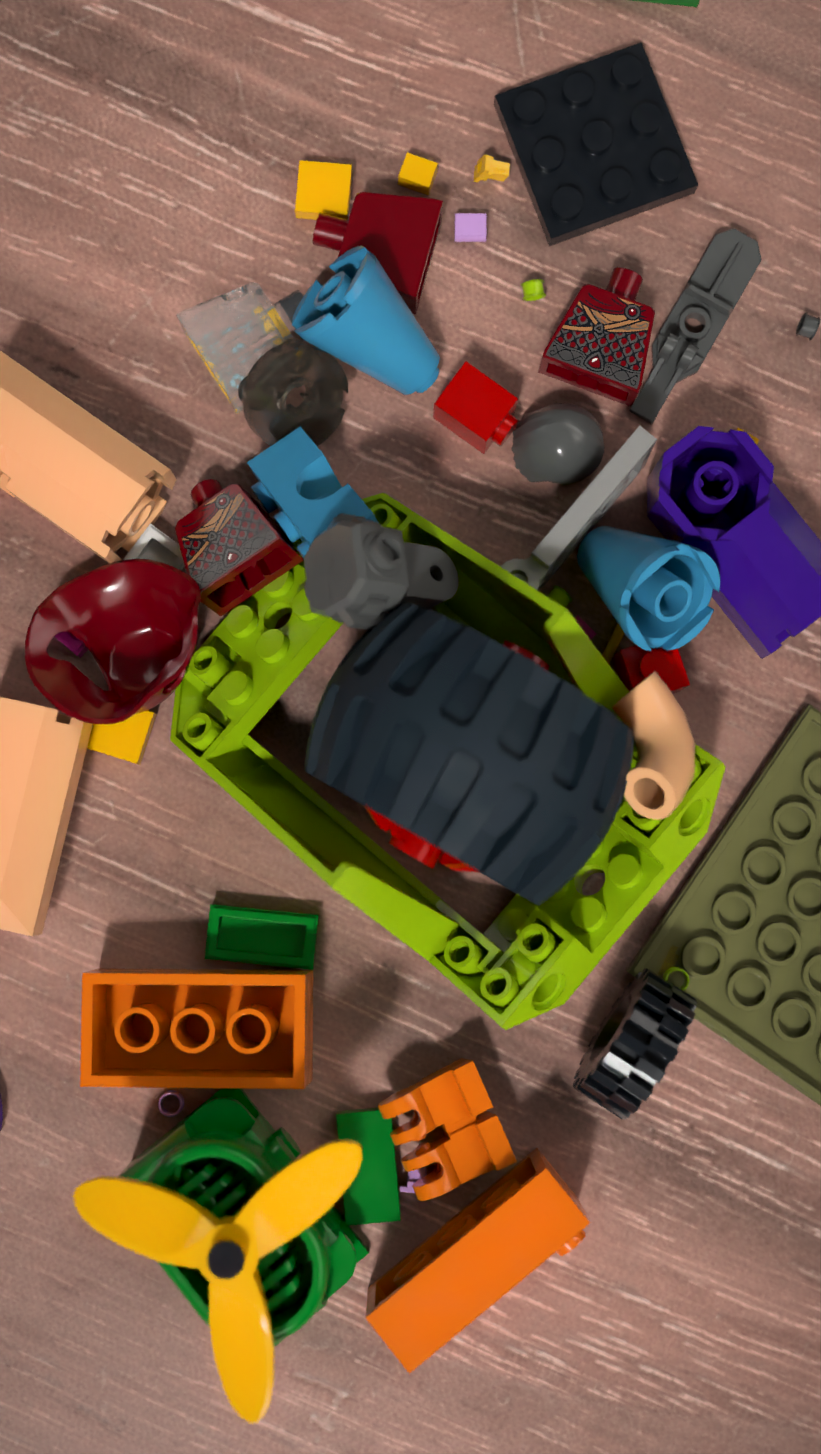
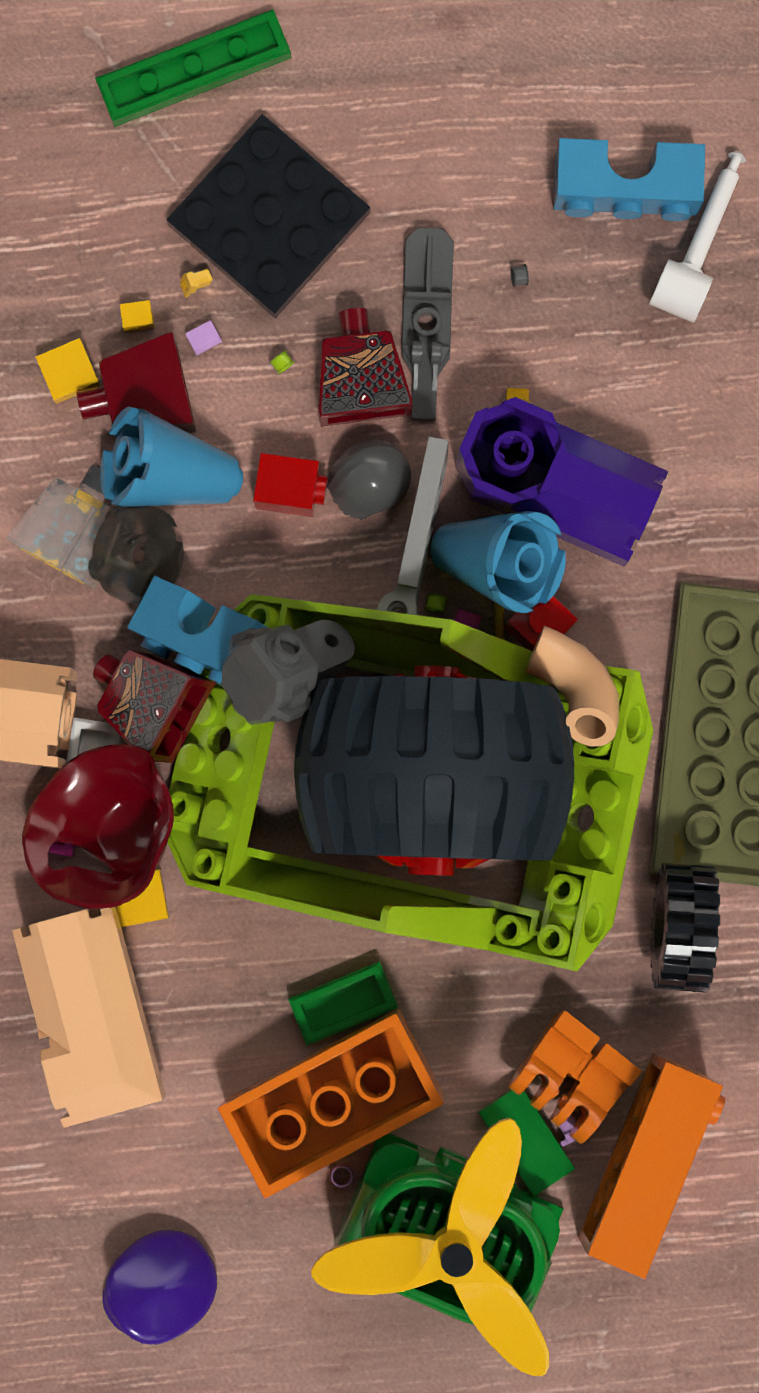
camera: 30 degrees left, 0 degrees up
(686, 976) = (701, 859): lime piece -> none

